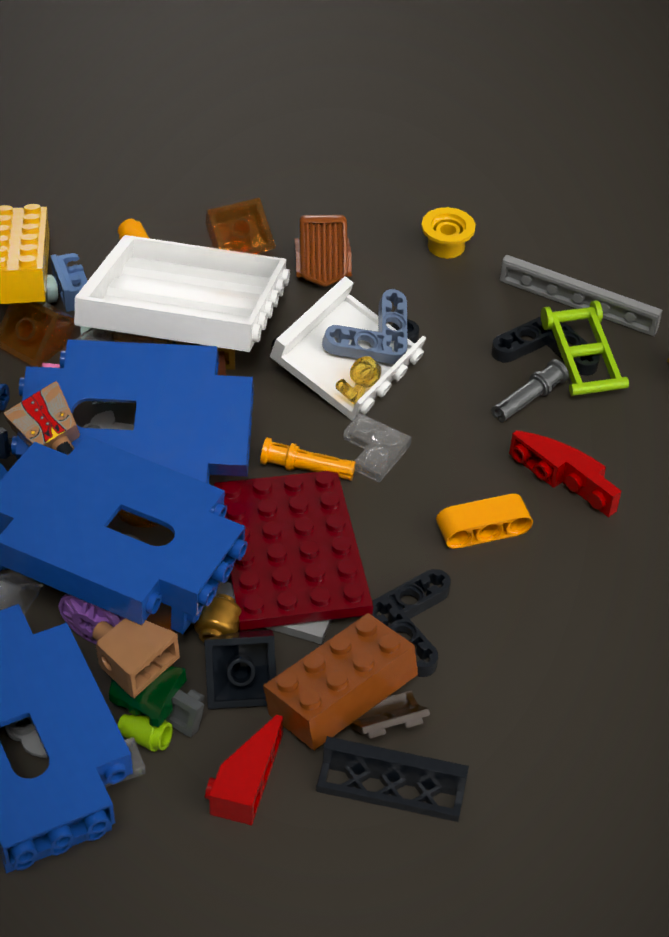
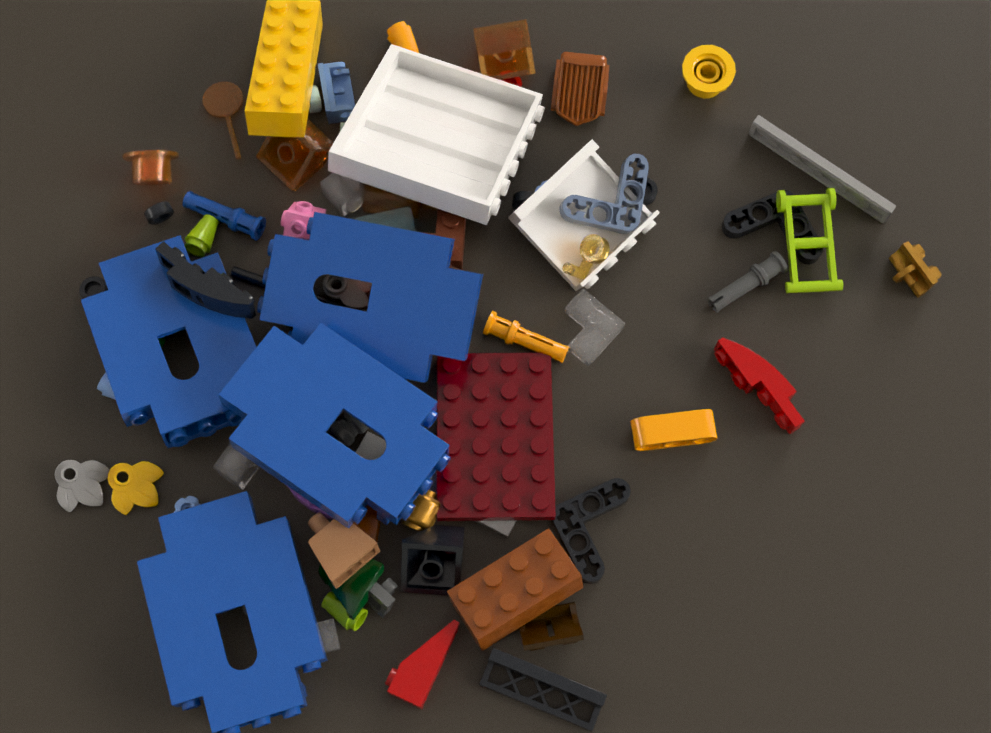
camera: 10 degrees right, 25 degrees up
(45, 420) = (288, 301): torso -> none

